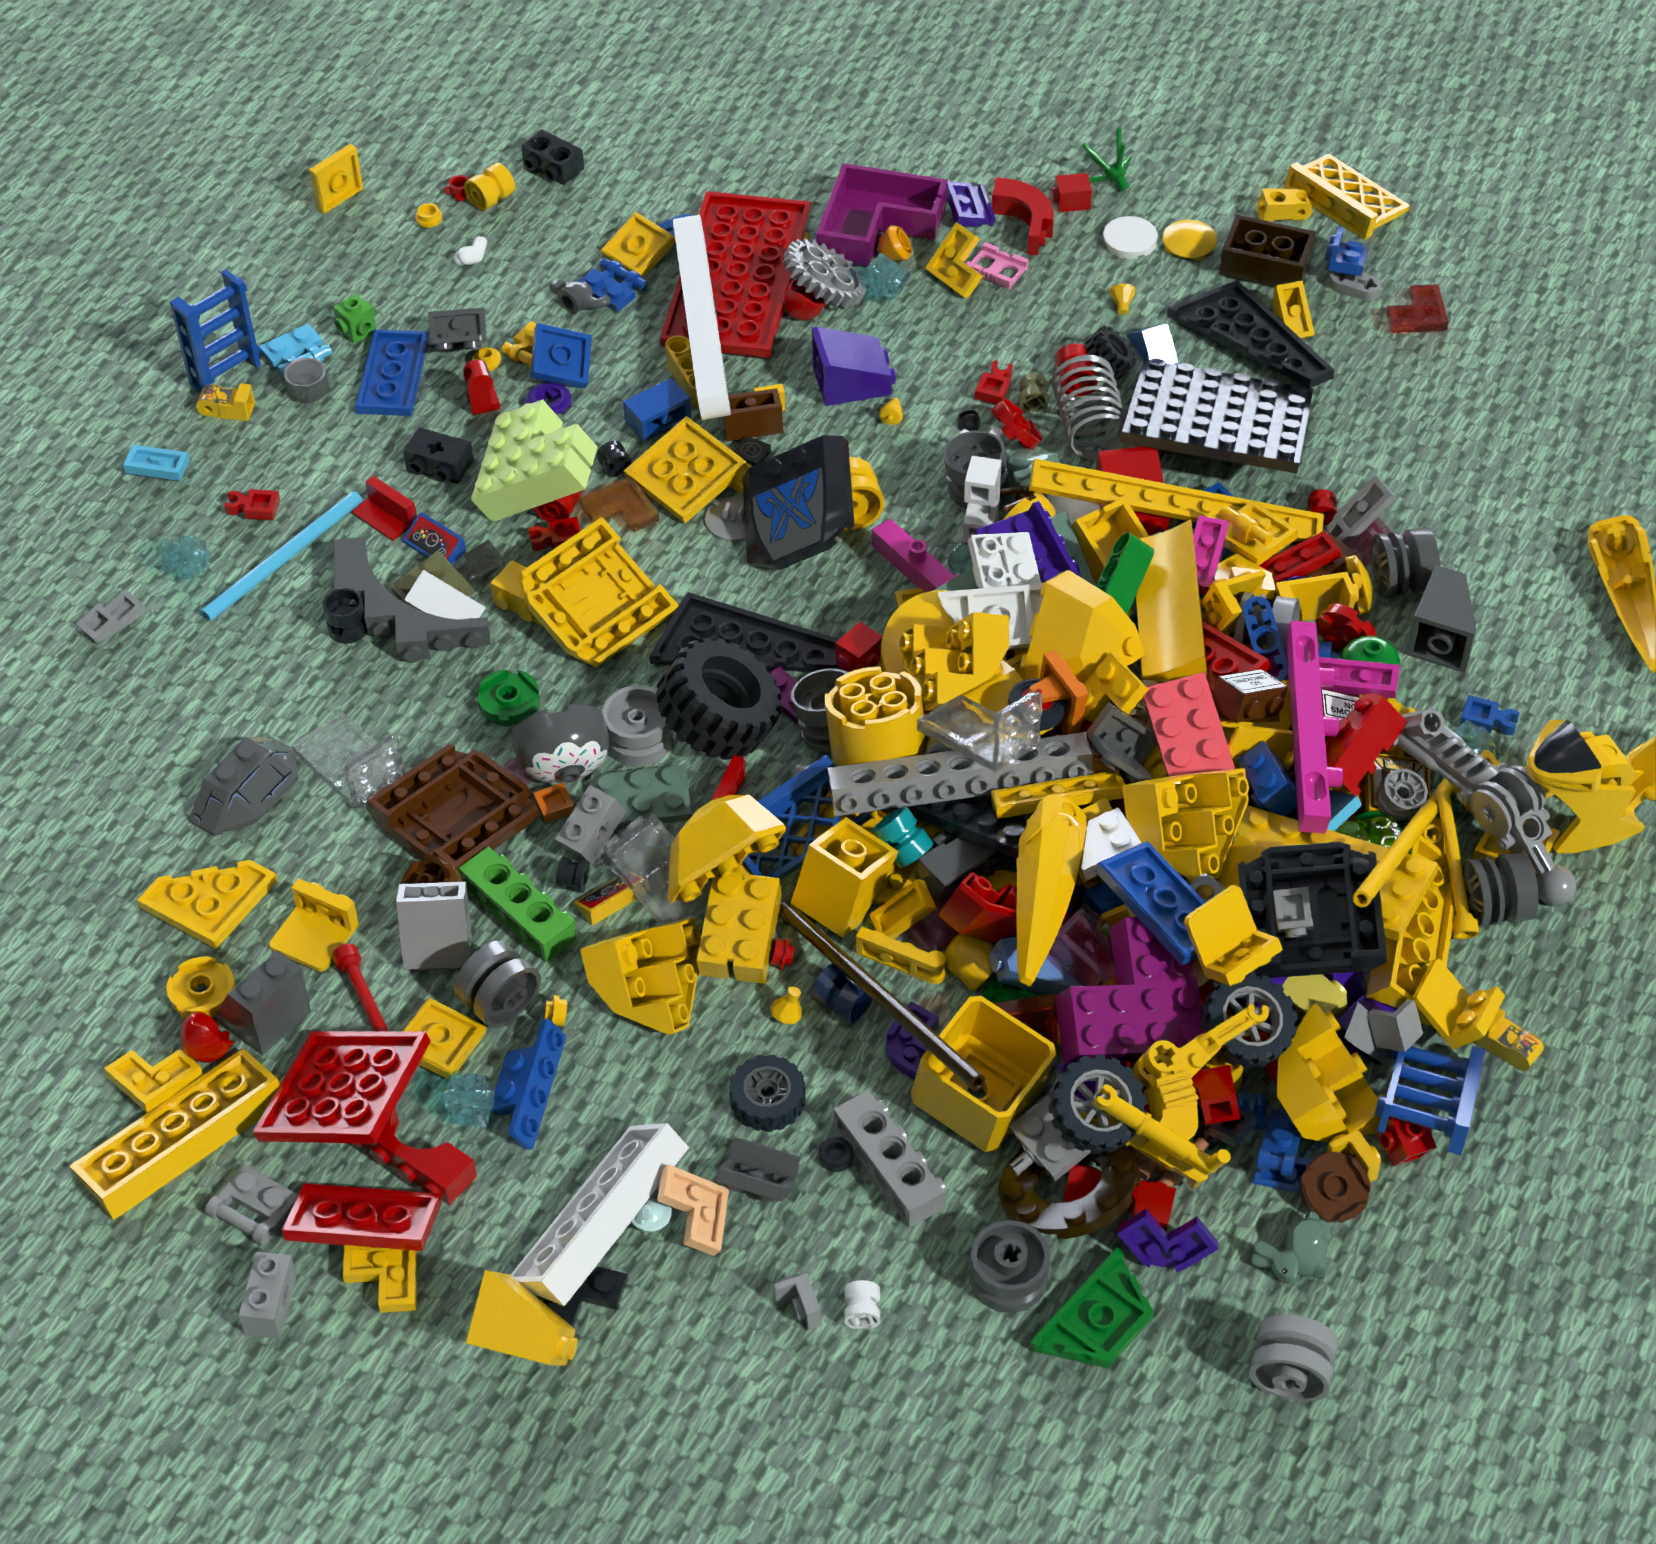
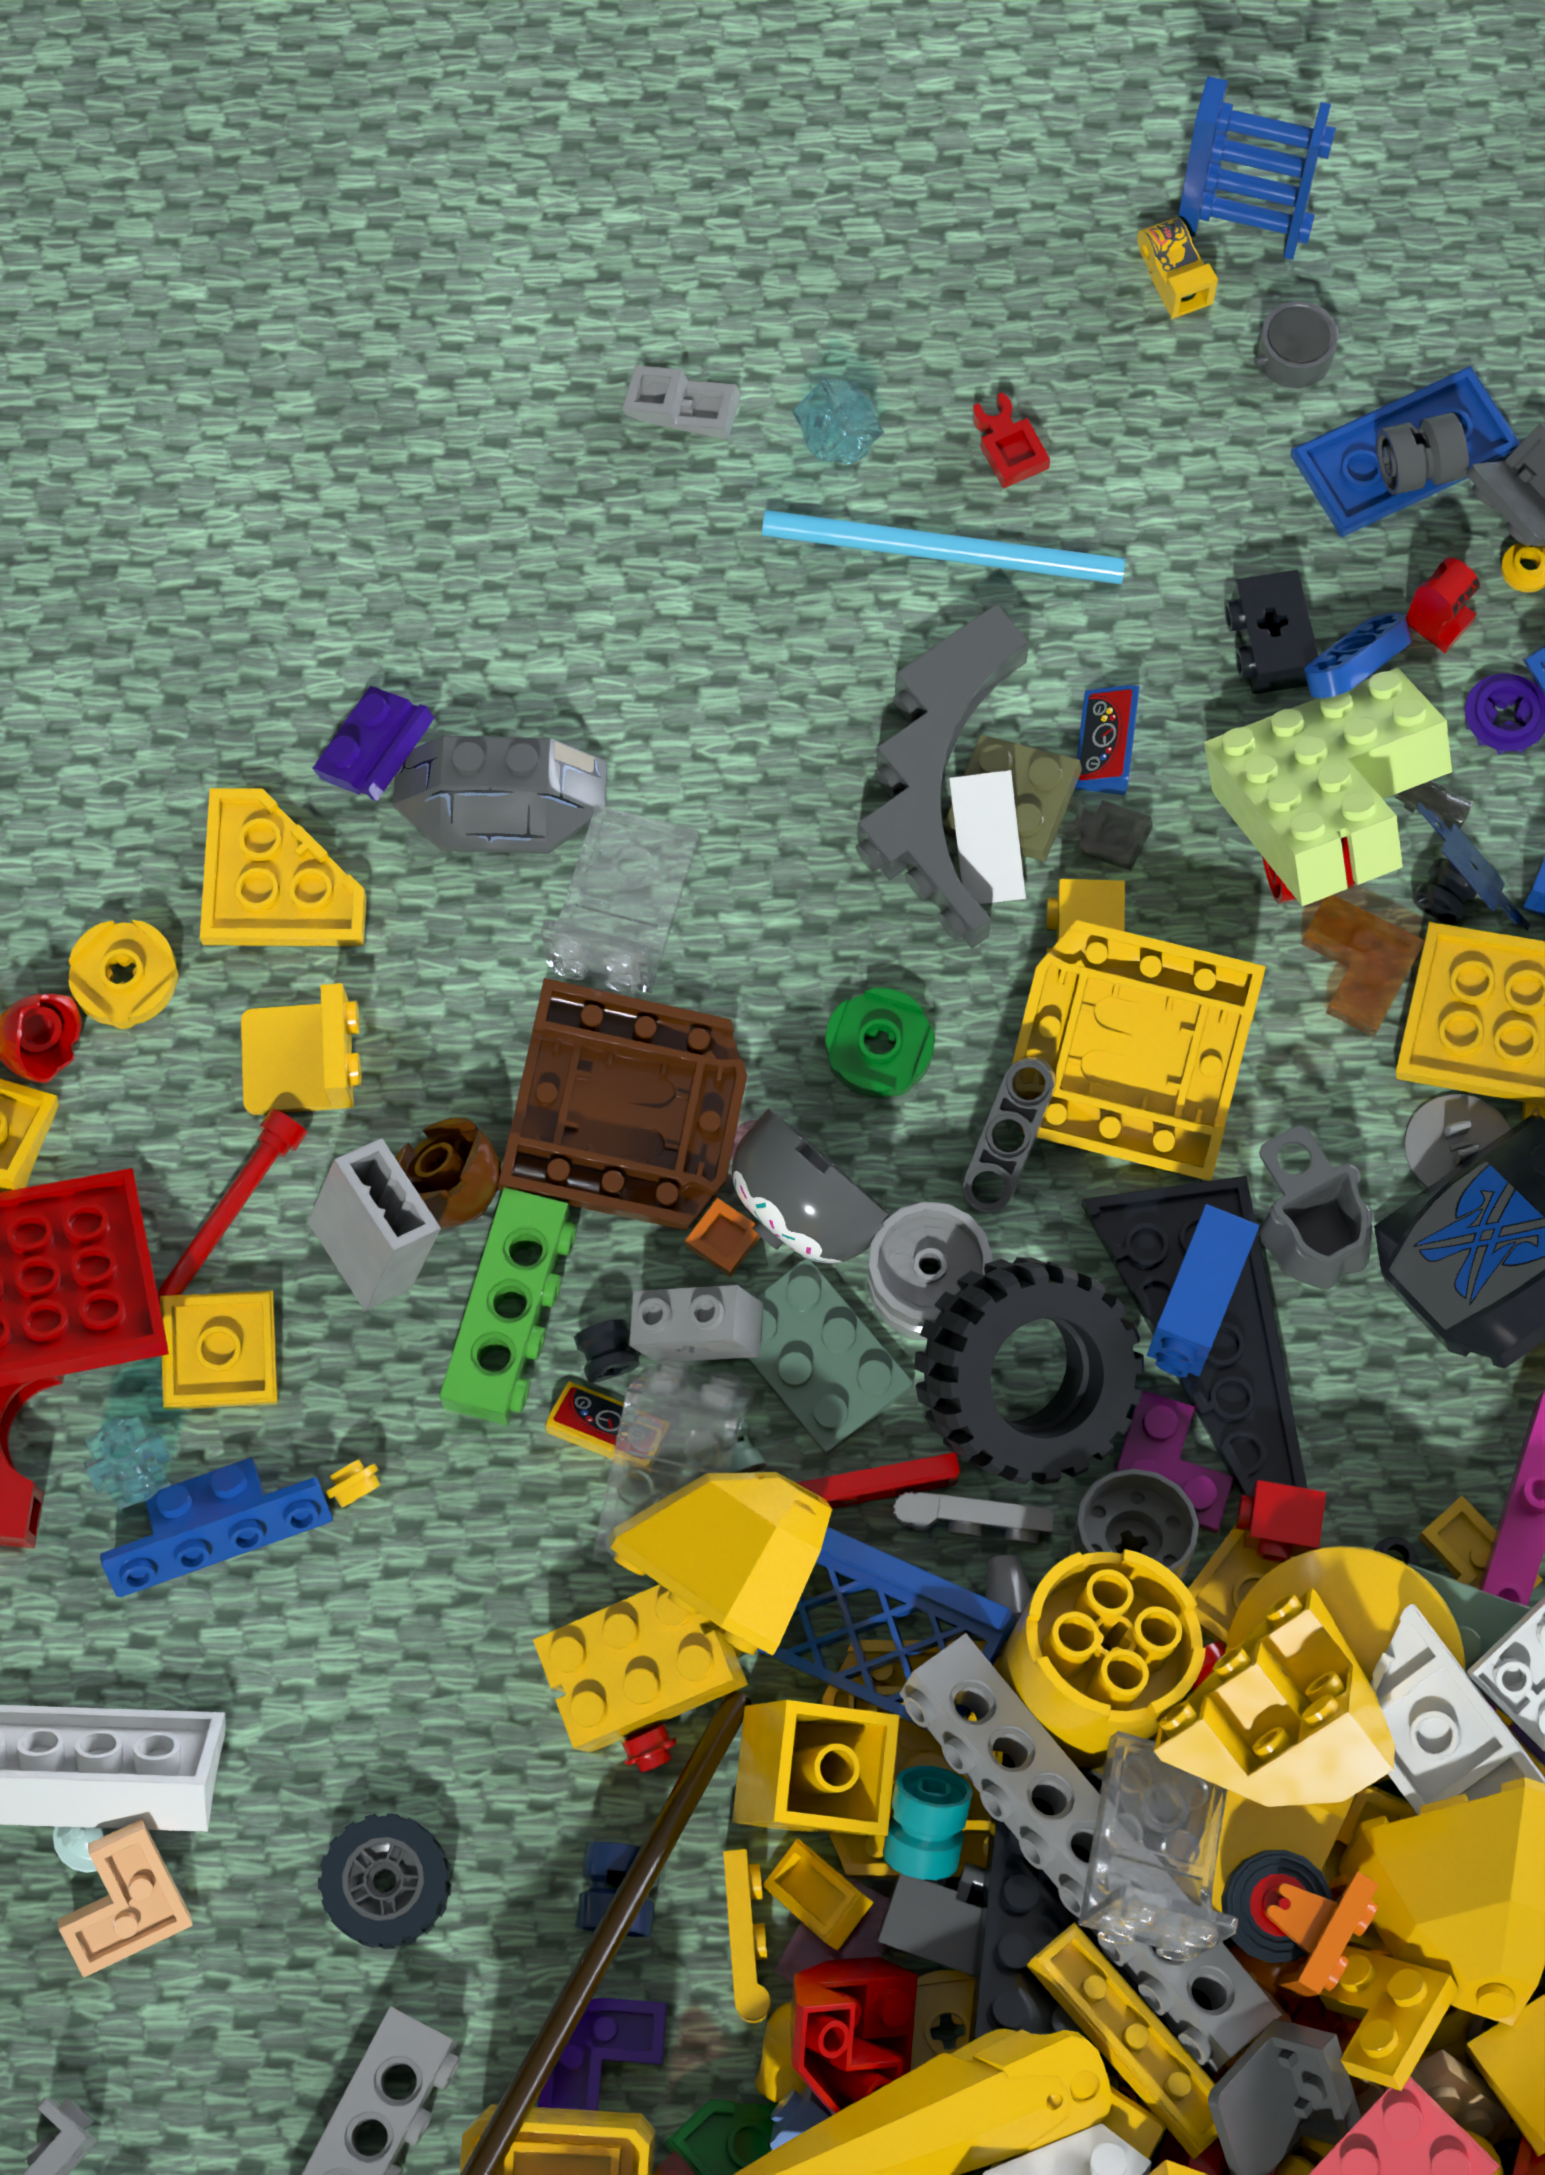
camera: 60 degrees right, 20 degrees up
(156, 462) = (997, 257): medium azure plate -> none
(175, 822) = (373, 743): none -> dark purple plate
(266, 1003) = (122, 1079): dark grey slope -> none
(294, 345) = (1357, 276): medium azure plate -> none
(345, 615) = (869, 712): black wheel -> none
(354, 318) = (1464, 325): bright green brick -> none
(386, 509) = (1117, 631): red panel -> none
(404, 357) = (1430, 452): none -> dark grey wheel
(478, 427) = (1357, 655): none -> blue beam
(497, 984) = (331, 1377): flat silver wheel -> none
(555, 535) = (1243, 913): red plate -> none
(596, 646) = (994, 1157): none -> dark grey beam
(622, 439) = (1461, 854): none -> dark blue piece
(648, 974) = (488, 1575): yellow brick -> none
(732, 614) = (1202, 1292): none -> blue window
(735, 571) = (1321, 1220): none -> dark grey piece
(759, 1171) = (235, 1955): dark grey bracket -> none
(767, 769) = (969, 1516): none -> light grey hinge
(787, 1008) = (552, 1816): yellow rock -> none
(835, 1154) = (340, 2045): black tile -> none

